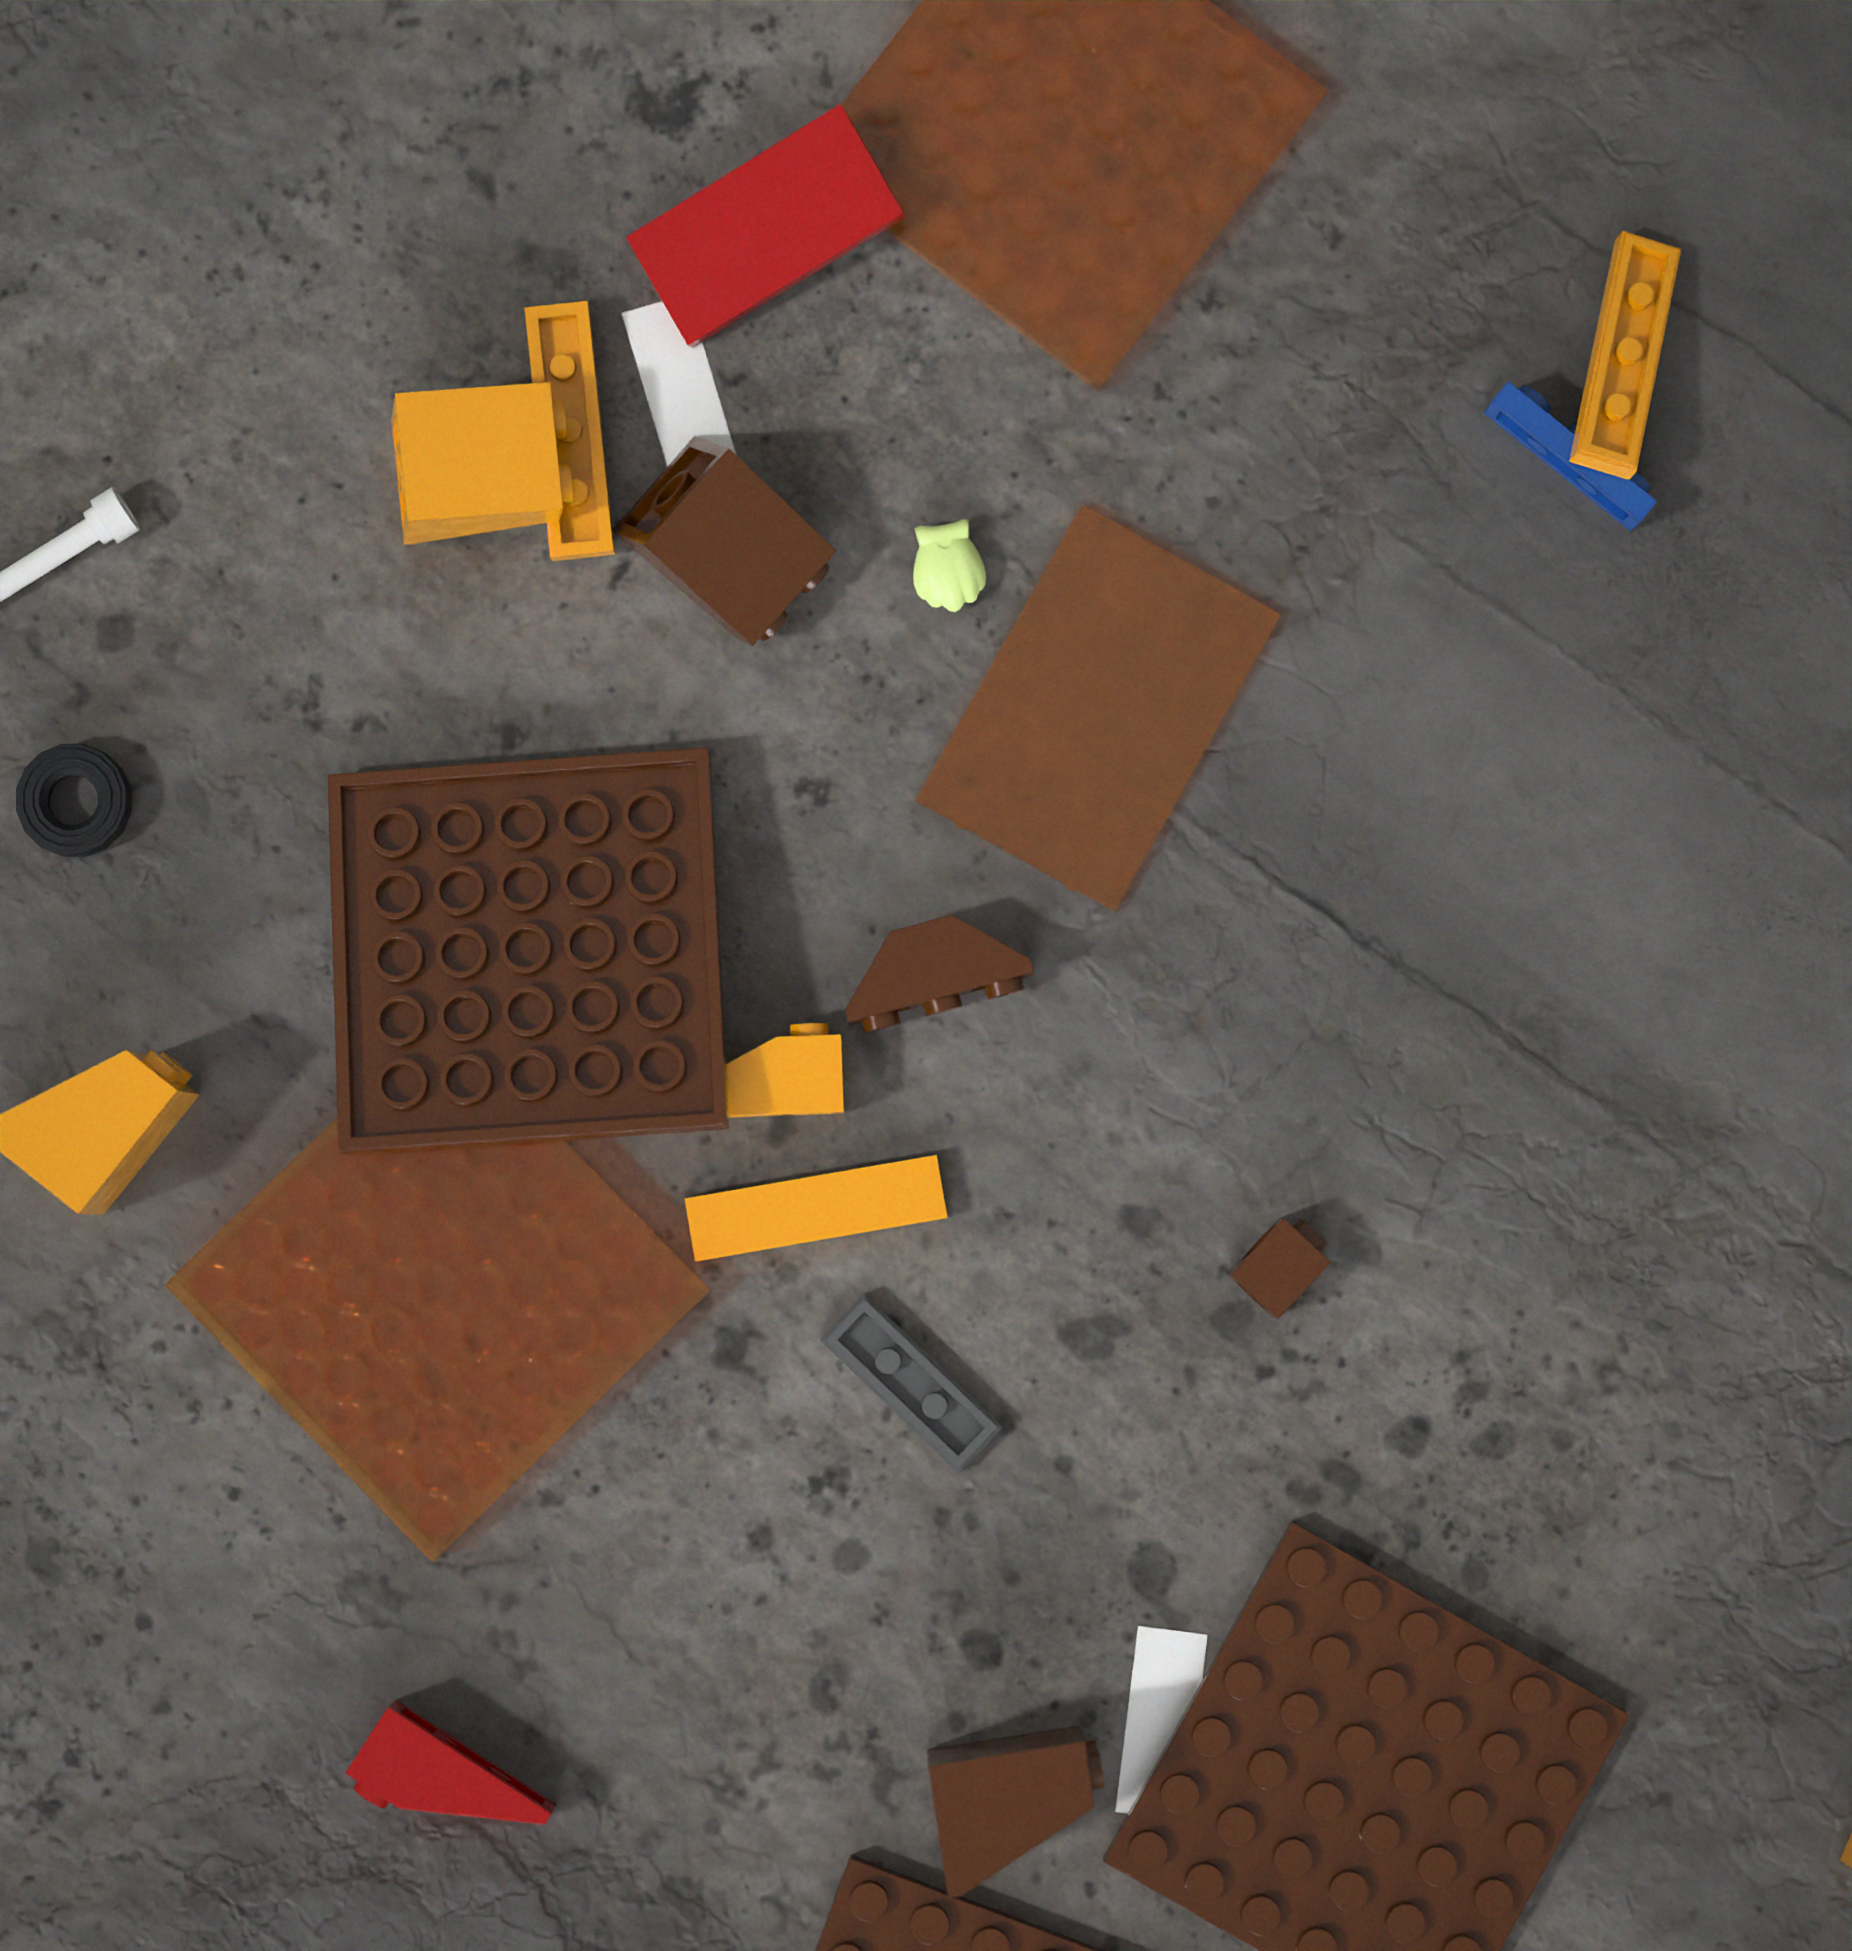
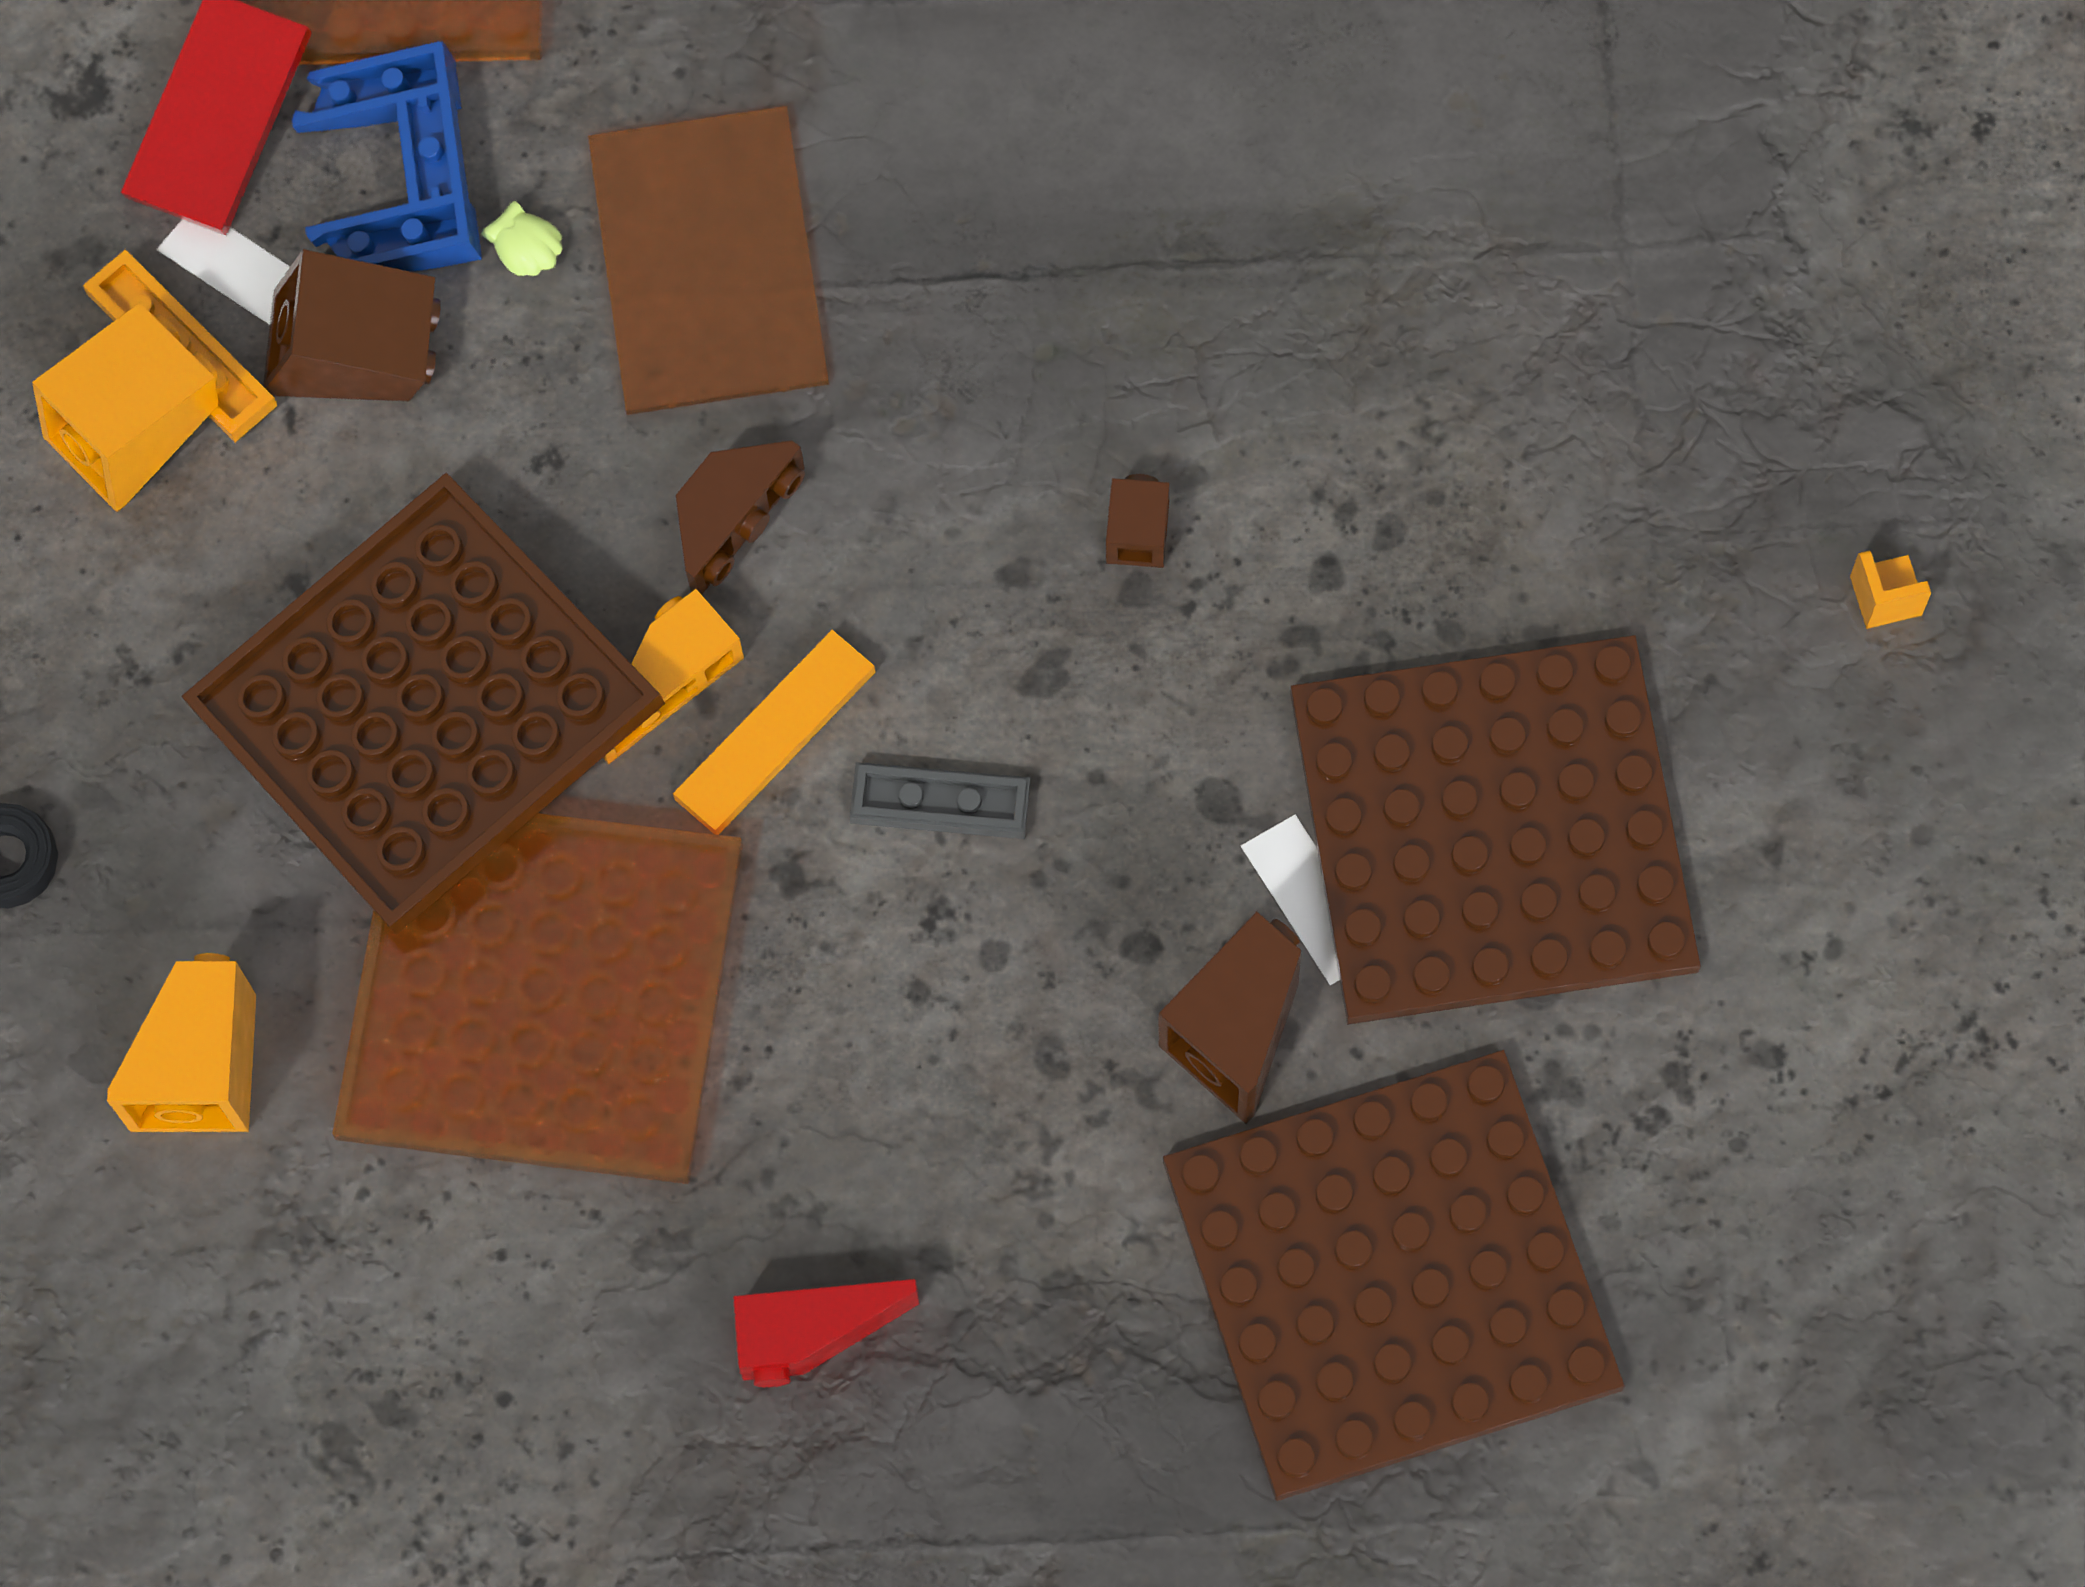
camera: 30 degrees left, 15 degrees down
(963, 352) = (423, 95): none -> blue wedge

